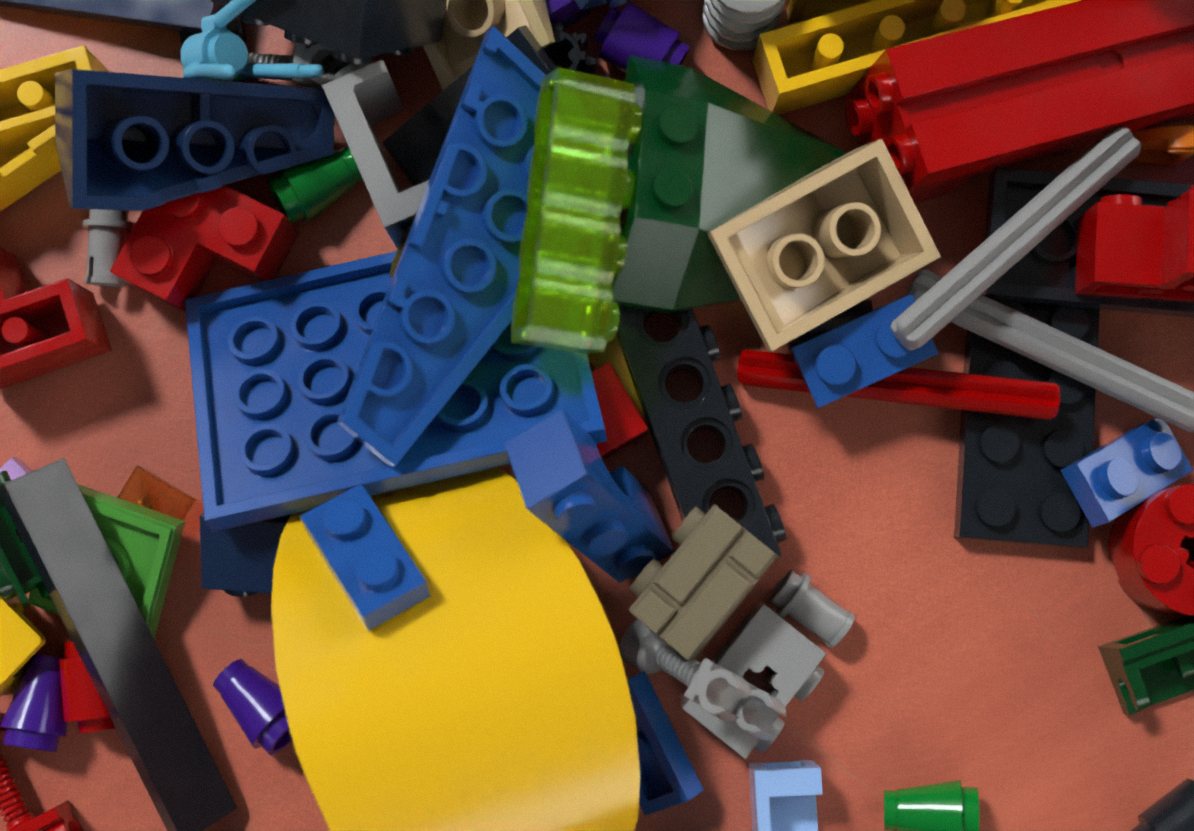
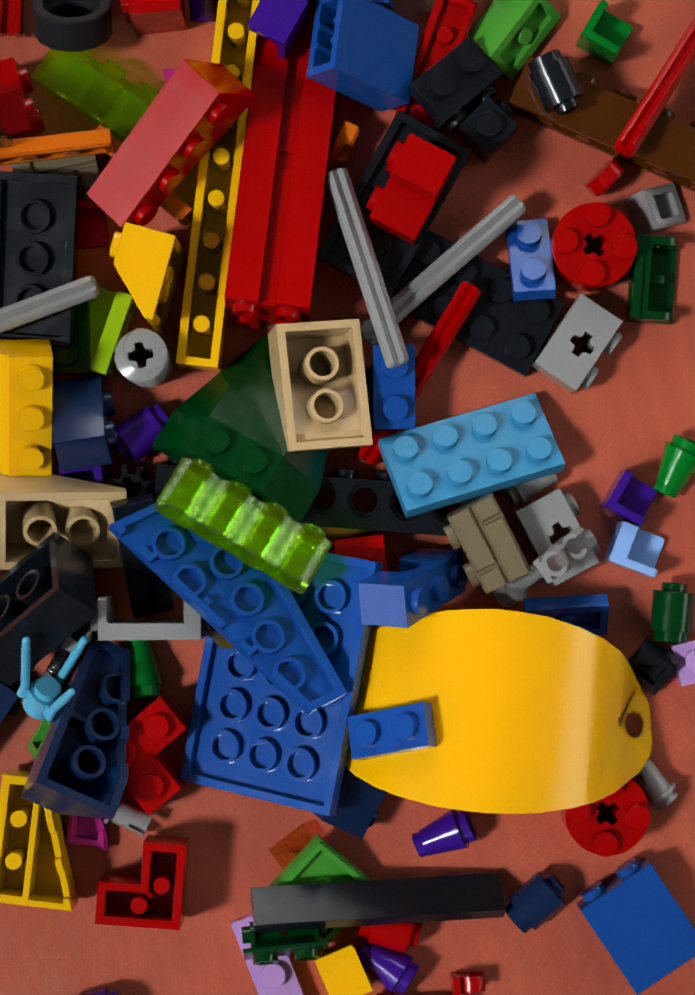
camera: 70 degrees left, 5 degrees up
(59, 221) = (87, 832): none -> dark pink tile
(815, 506) = (470, 455): none -> dark azure plate
(854, 761) = (628, 498): none -> dark purple panel
(1077, 584) = (582, 320): none -> light grey brick

